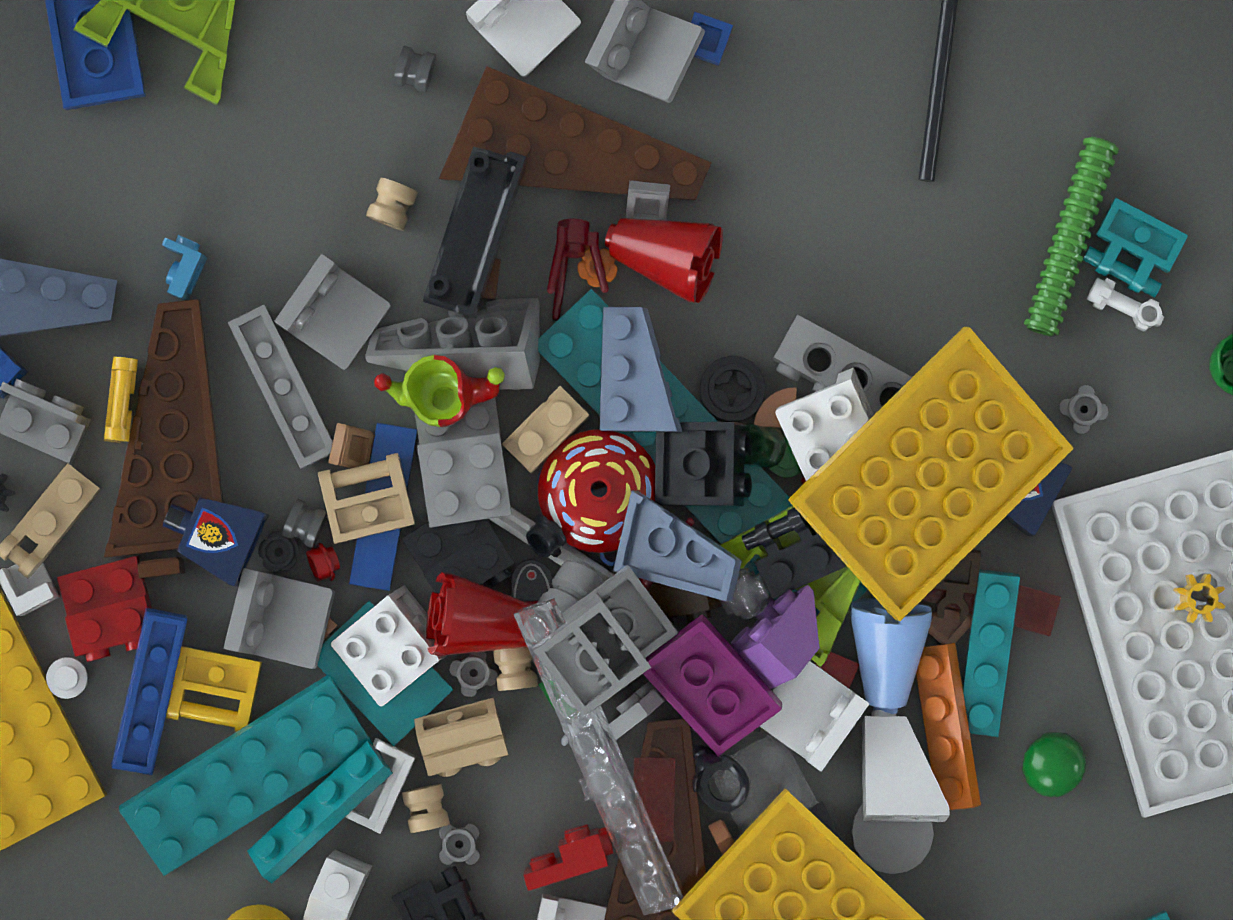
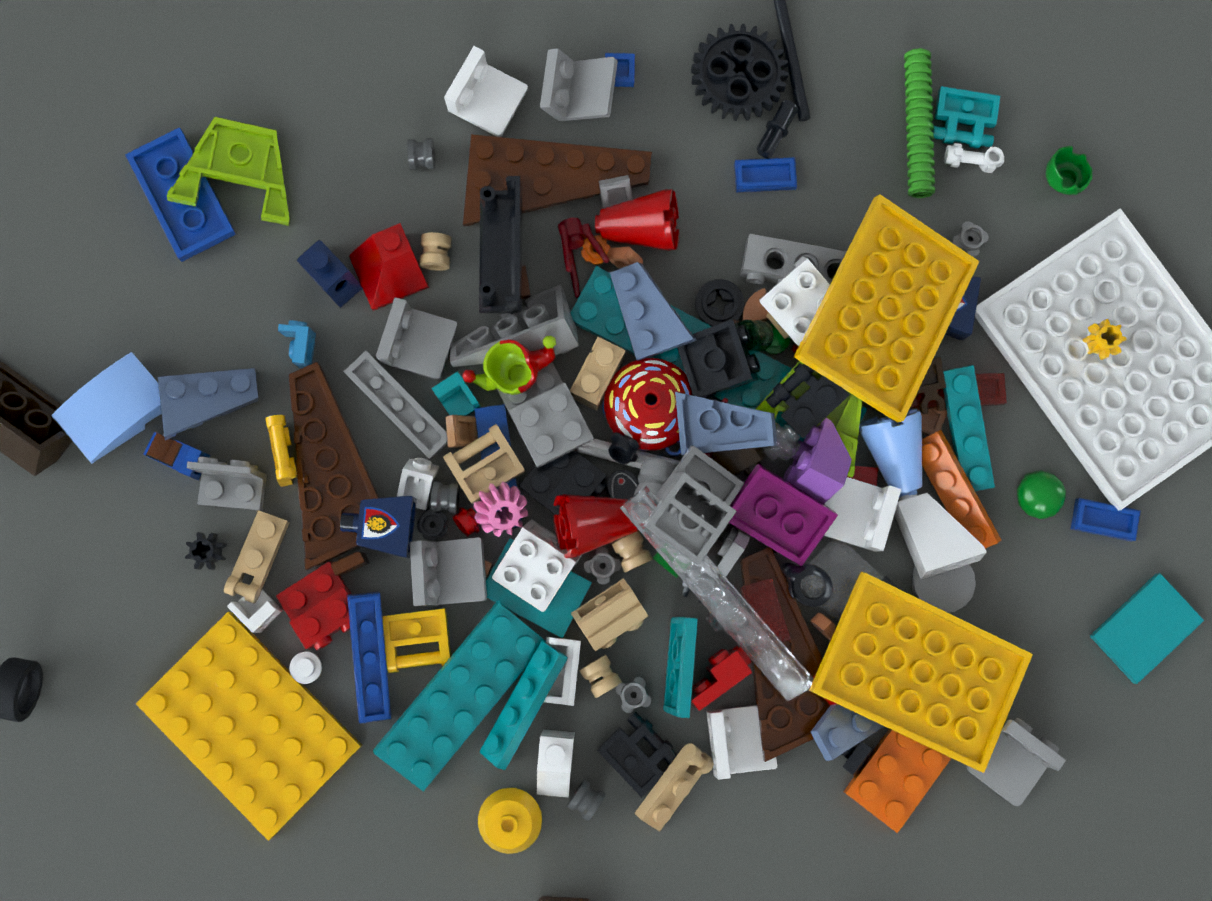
camera: 15 degrees left, 5 degrees down
(248, 191) = (328, 272): none -> dark blue torso
(277, 492) = (417, 480): none -> white bracket
(325, 205) = (387, 267): none -> red slope
(359, 400) = (456, 396): none -> teal panel
(368, 563) = (495, 500): none -> bright pink gear
(526, 828) = (680, 666): none -> teal tile
(629, 291) = (623, 256): none -> nougat tile
(826, 105) = (759, 57): none -> black gear
(849, 238) = (765, 174): none -> blue tile
(884, 184) = (777, 128): none -> black axle
(1124, 823) = (1105, 519): none -> blue tile

